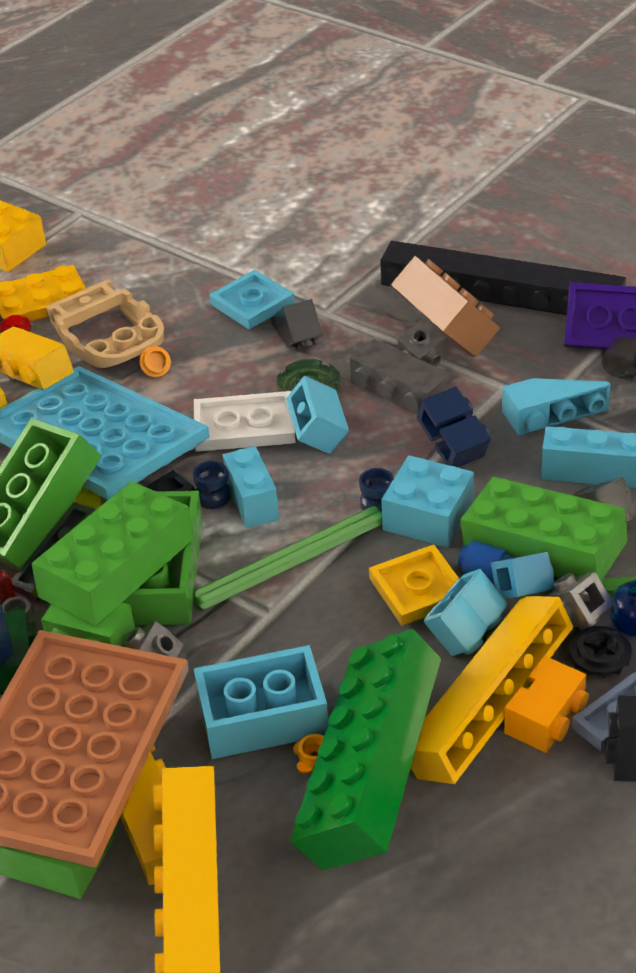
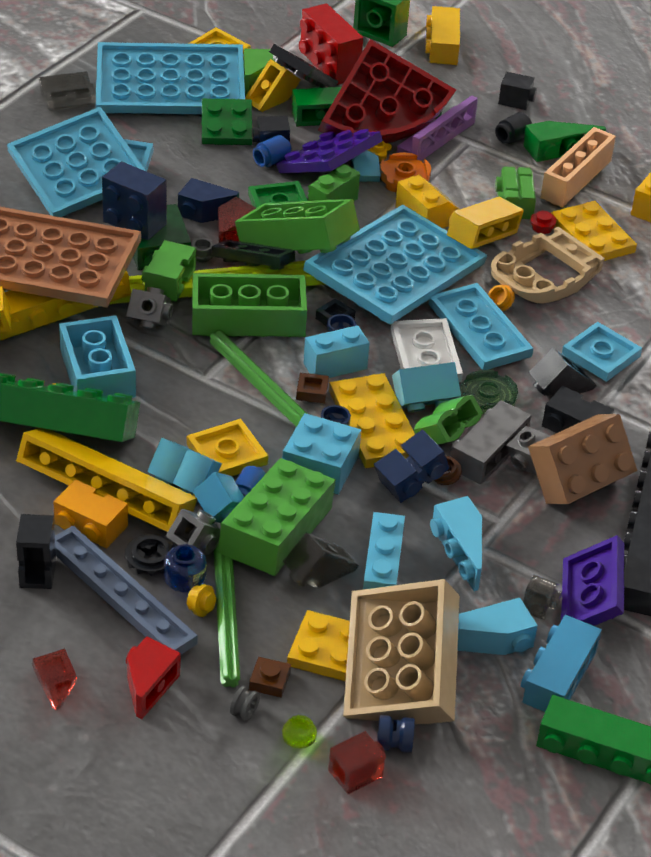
camera: 80 degrees right, 0 degrees up
(112, 552) = (218, 258): bright green brick -> none
(208, 375) = (481, 326): none -> medium azure plate
(305, 512) = (312, 387): none -> reddish brown plate
(335, 469) = (376, 413): none -> yellow plate
(362, 319) = (569, 408): none -> black brick
(377, 402) = (450, 419): none -> bright green brick

